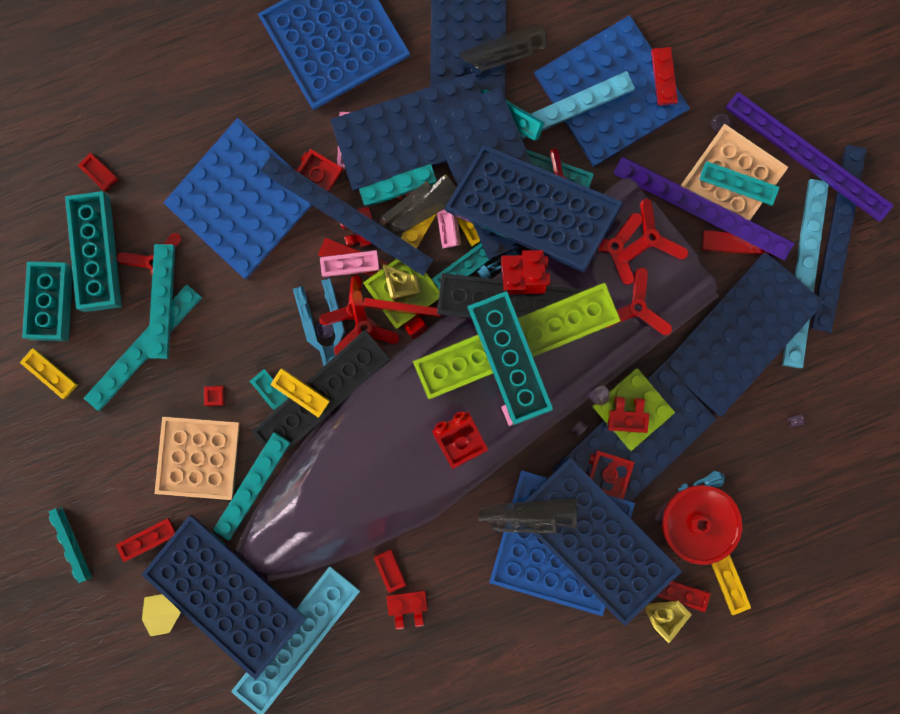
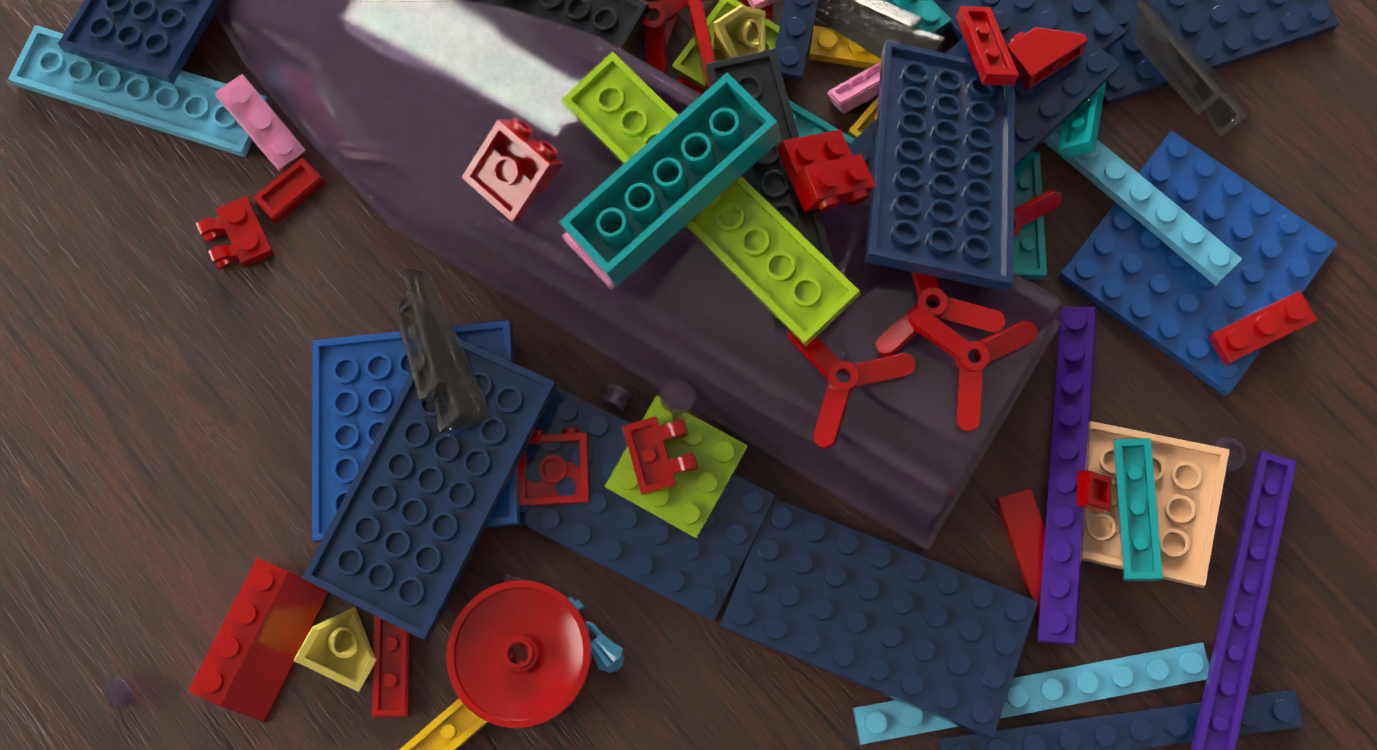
camera: 65 degrees right, 10 degrees down
(346, 574) = (260, 122): none -> bright pink plate
(466, 154) = (987, 46): none -> red plate
(481, 127) = (1044, 53): none -> red slope
(646, 659) = (259, 641): none -> red slope
(721, 200) = (1094, 491): none -> red tile

